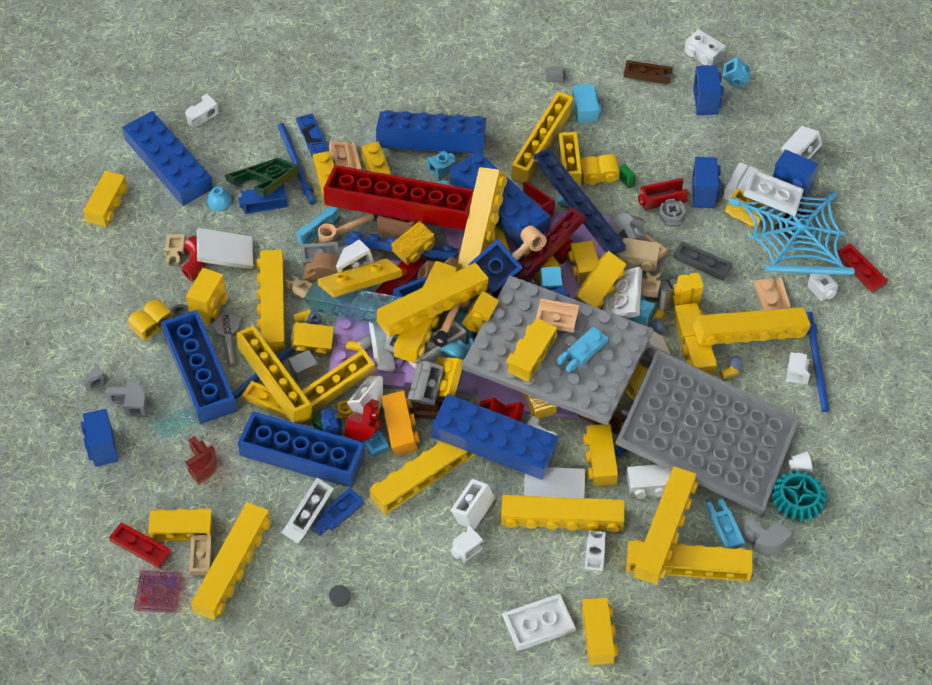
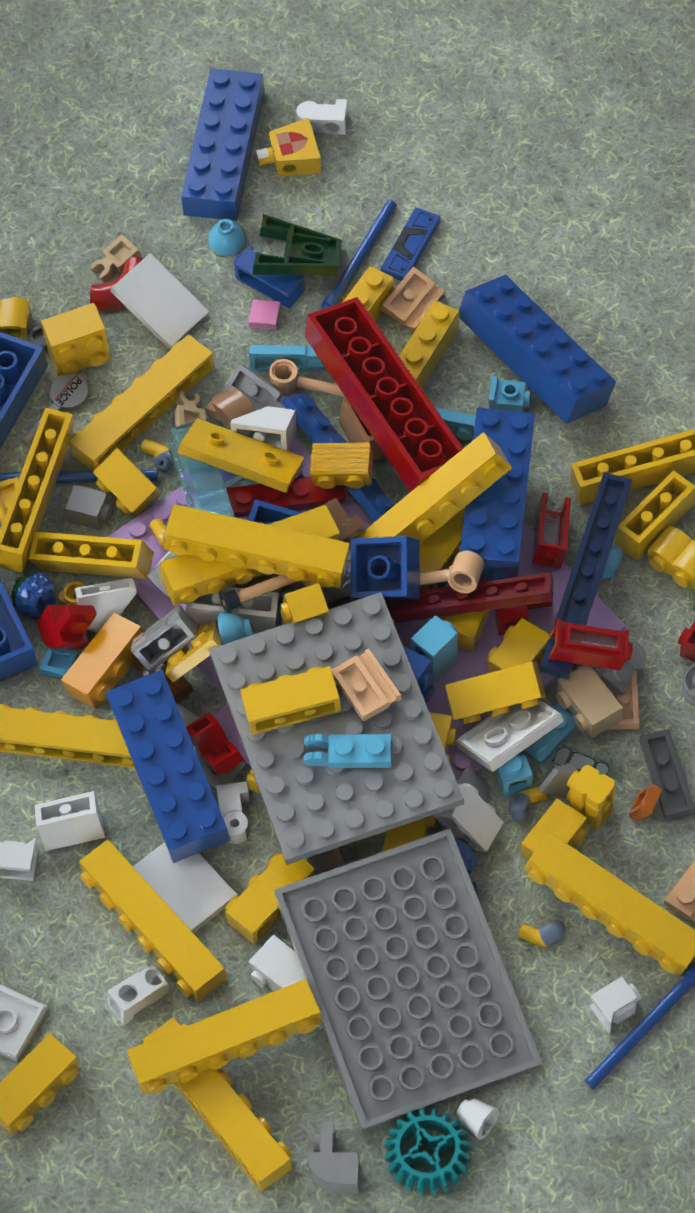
camera: 50 degrees right, 5 degrees up
(105, 198) = (110, 140): yellow brick -> none
(205, 136) = (292, 150): none -> yellow torso
(280, 217) = (264, 314): none -> bright pink tile
(623, 224) = (590, 645): none -> red window
(651, 285) = (561, 750): tan plate -> none
(699, 356) = (513, 889): yellow brick -> none
(709, 278) = (645, 803): none -> orange tile
(725, 525) = (305, 1105): medium azure hinge -> none

